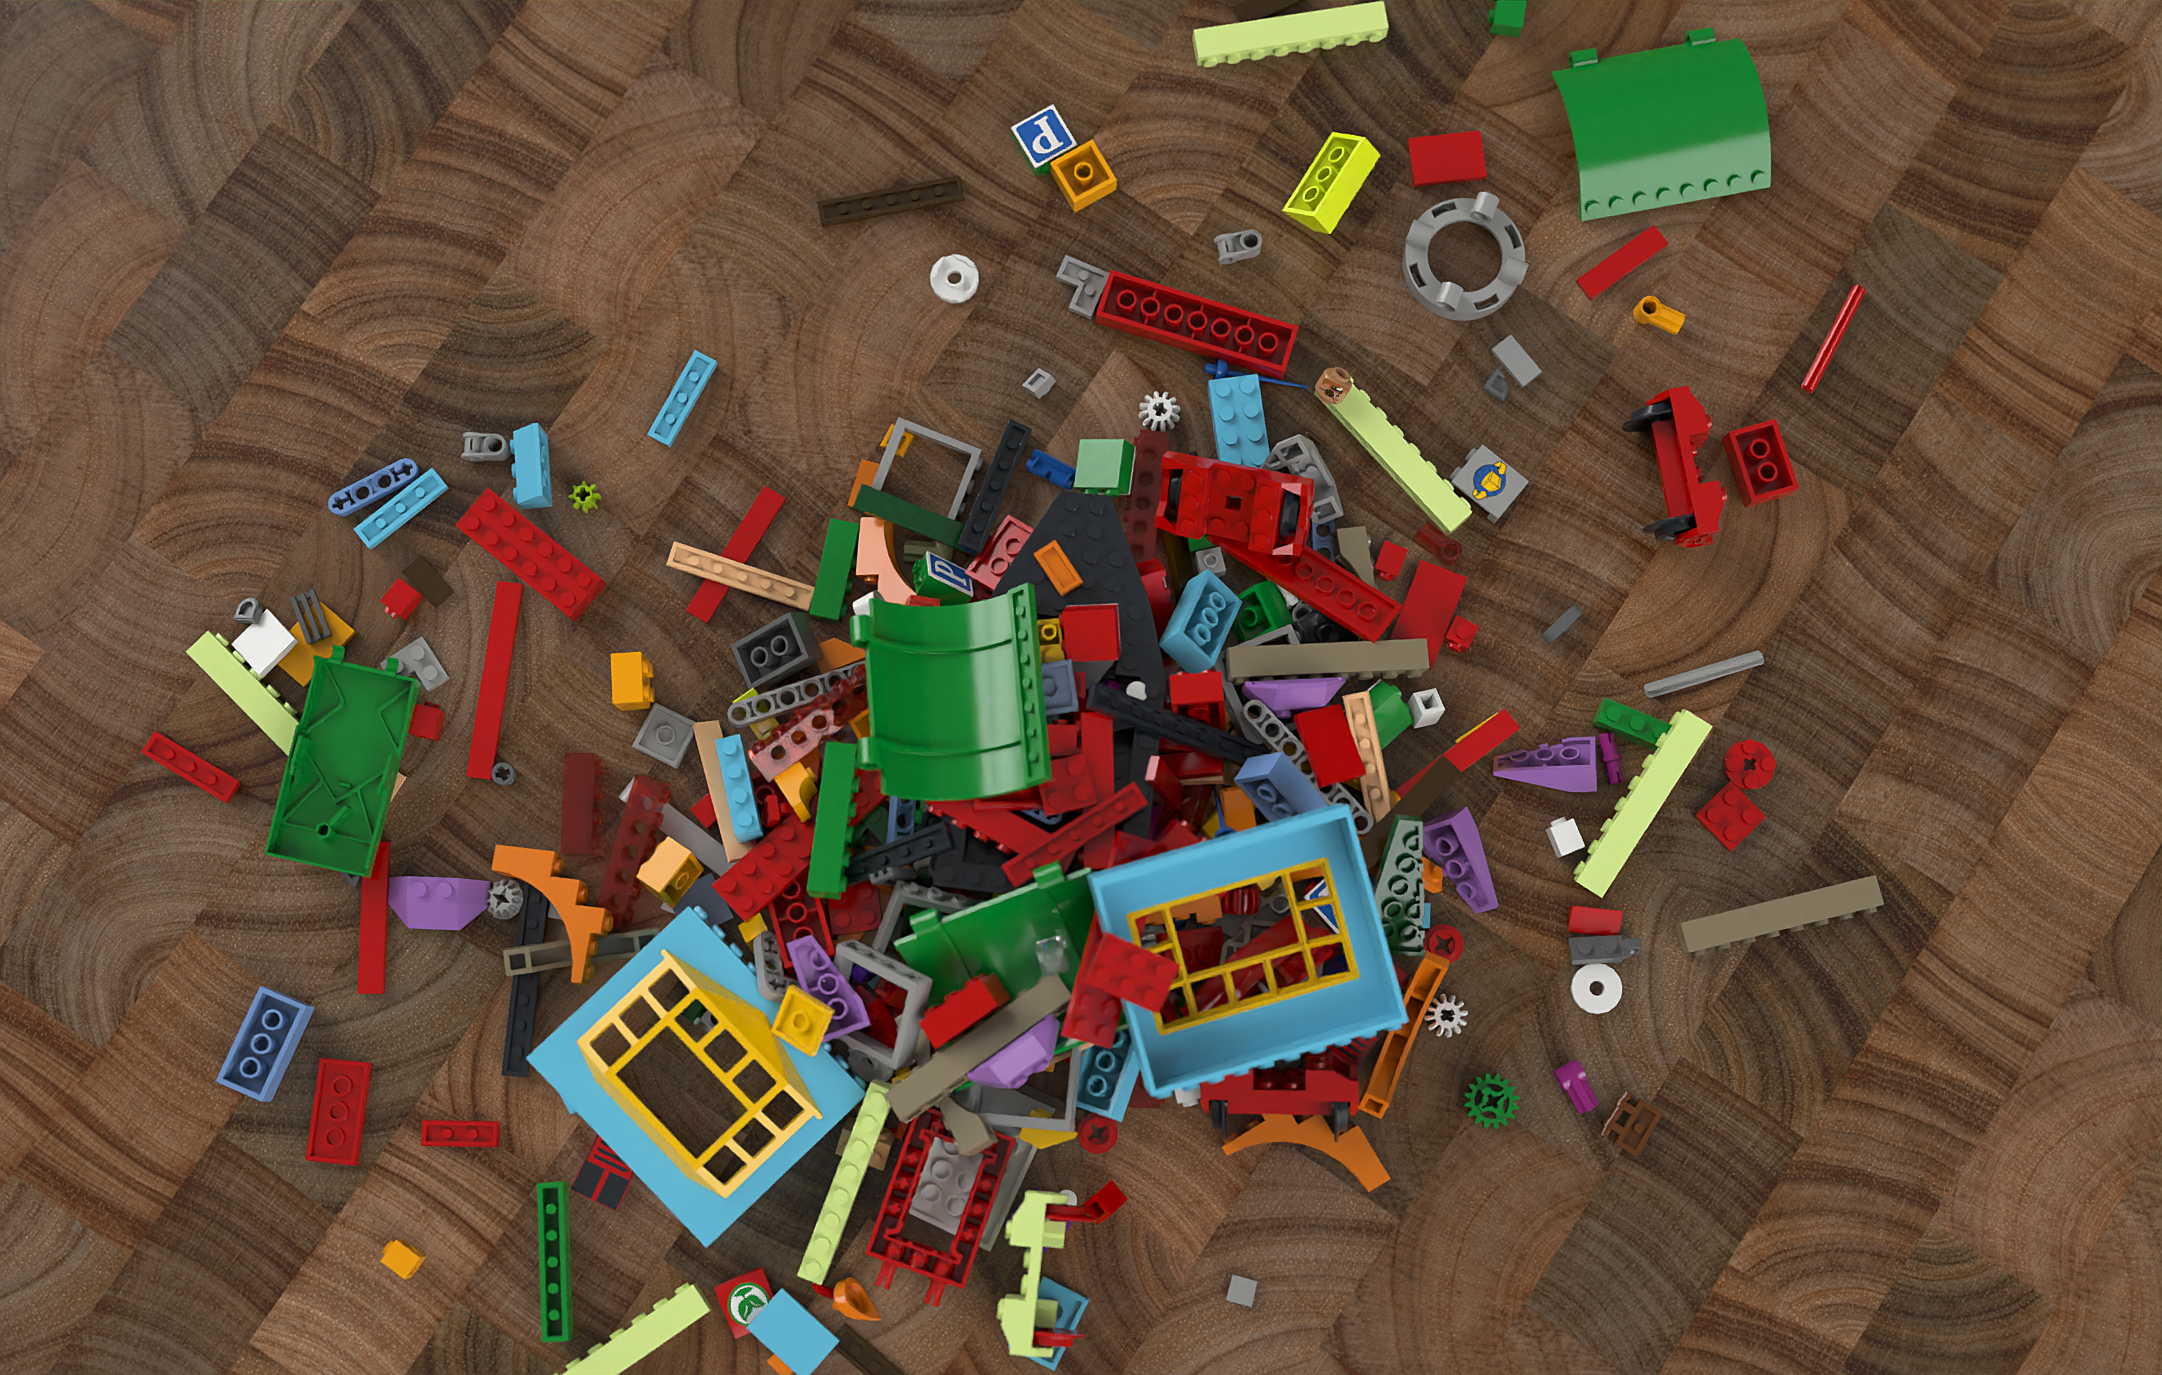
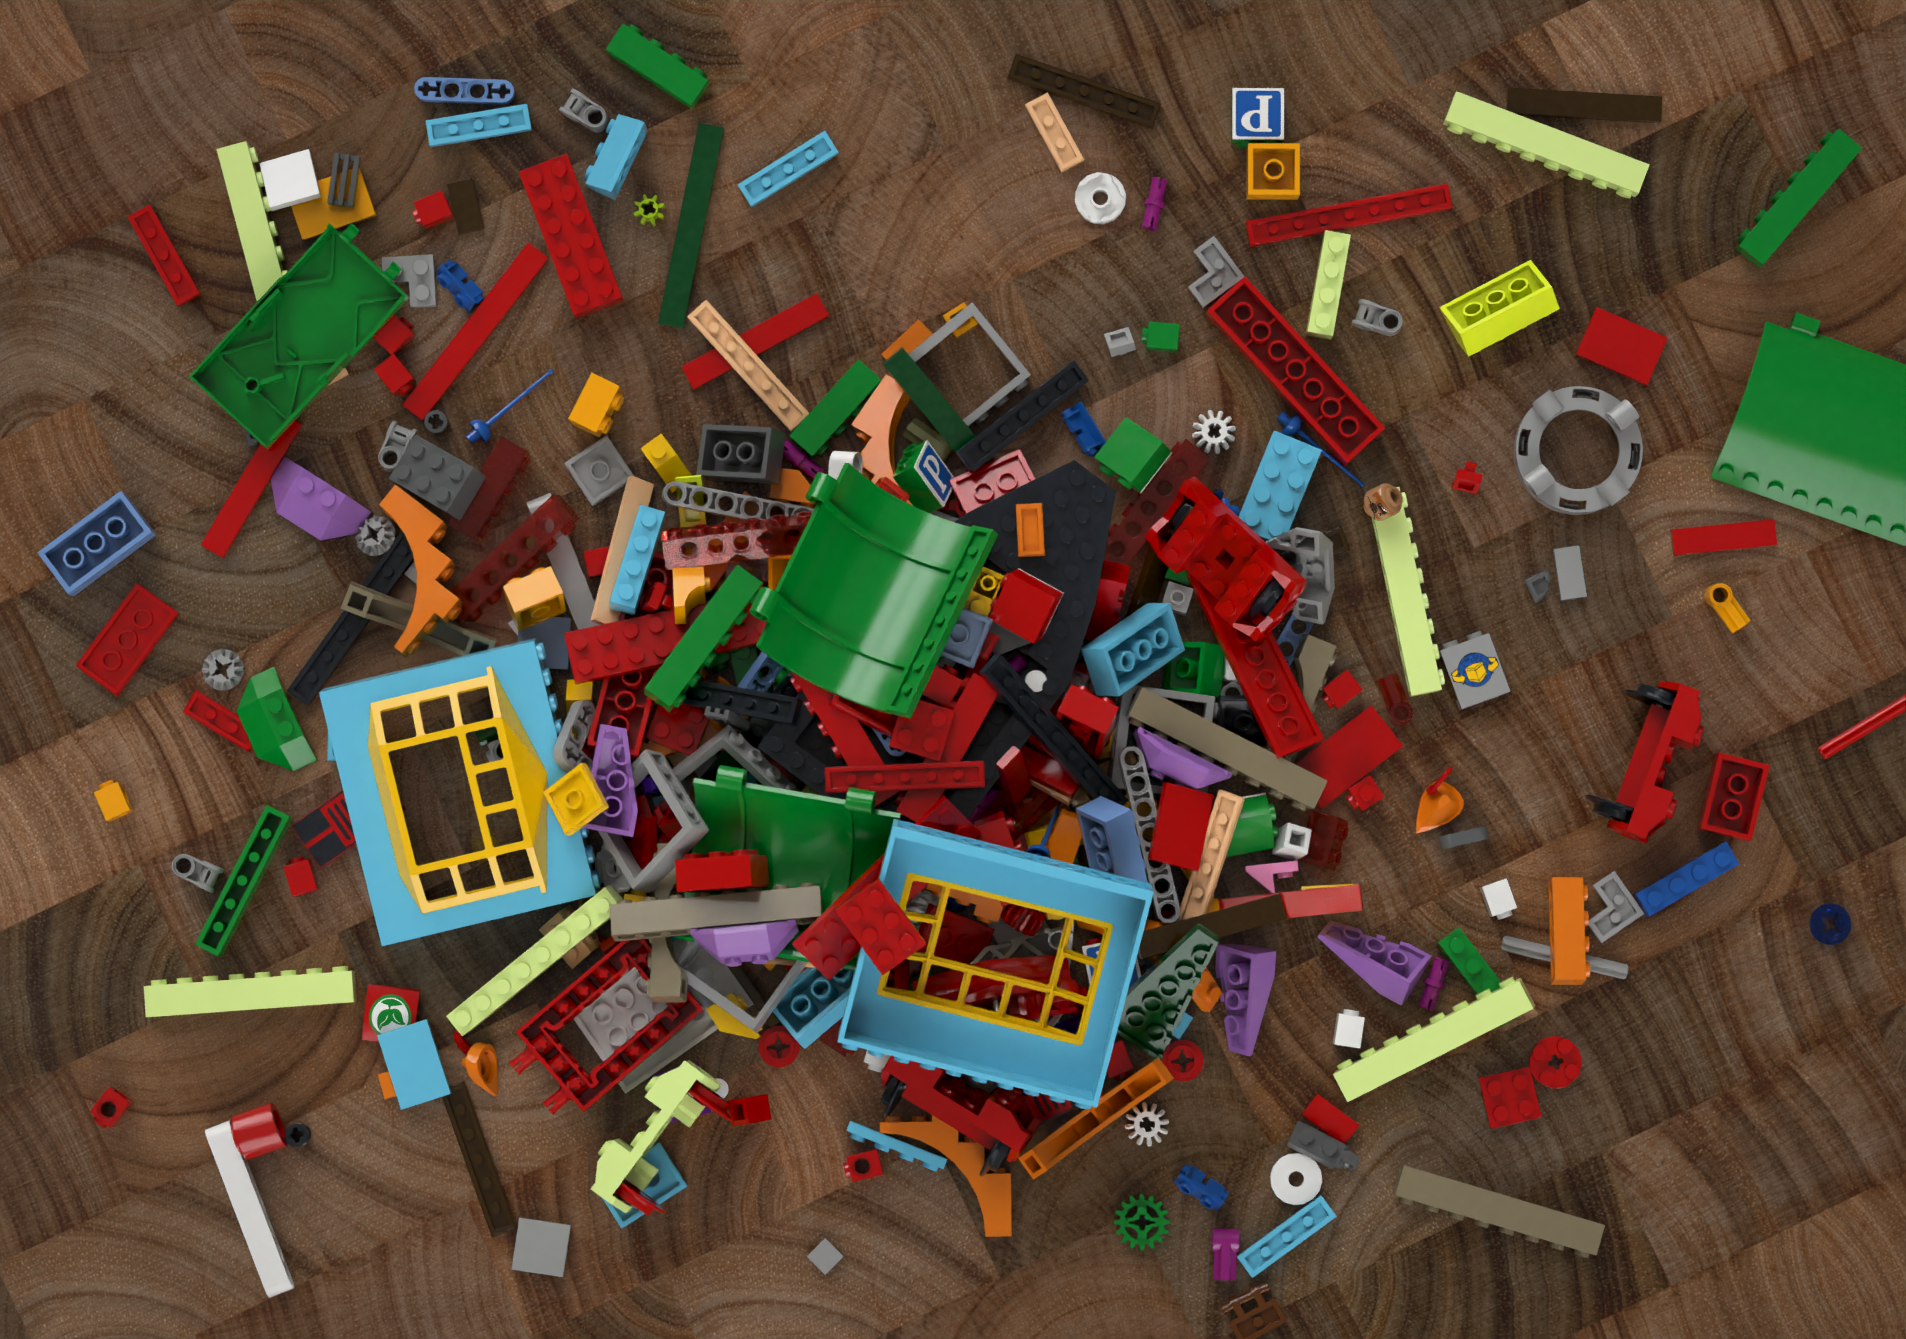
camera: 35 degrees right, 5 degrees up
(249, 611) = (291, 142): dark grey tile -> none
(446, 754) = (395, 376): none -> red brick
(447, 1085) = (235, 670): none -> light grey gear
(448, 646) = (451, 277): none -> blue hinge
(481, 808) = (395, 443): none -> light grey piece
(506, 1110) = (274, 723): none -> green wedge
(514, 1277) = (198, 872): none -> light grey piece
(525, 375) = (658, 66): none -> green brick
(529, 818) = (437, 477): none -> dark grey brick
(545, 757) = (482, 429): none -> blue sword
(603, 1228) = (301, 876): none -> red brick
(628, 491) = (691, 225): none -> dark green tile
(715, 694) = (665, 460): none -> yellow slope
(830, 630) = (800, 460): none -> magenta pin
(886, 247) = (1054, 132): none -> light nougat tile
(1001, 257) = (1154, 204): none -> magenta pin
(1052, 956) = (825, 870): clear brick -> none
(1070, 360) = (1161, 337): none -> green brick
(1164, 179) = (1348, 215): none -> red tile
(1182, 241) = (1328, 285): none -> yellowish green brick
(1236, 1161) = (906, 1150): none -> medium azure plate
(1240, 1188) = (875, 1165): none -> red brick
(1388, 332) = (1467, 479): none -> red tile
(1418, 749) = (1264, 873): none -> bright pink slope
(1452, 691) = (1325, 840): none -> clear red bracket
(1524, 609) = (1438, 804): none -> orange piece
(1534, 1044) = (1190, 1182): none -> blue hinge
(1618, 1041) = (1286, 1236): none -> medium azure plate
(1621, 657) = (1498, 899): none -> white brick
(1695, 650) = (1567, 931): none -> orange brick
(1724, 608) = (1619, 911): none -> light grey plate
(1763, 552) = (1685, 879): none -> blue brick
(1907, 514) = (1842, 923): none -> clear blue gear

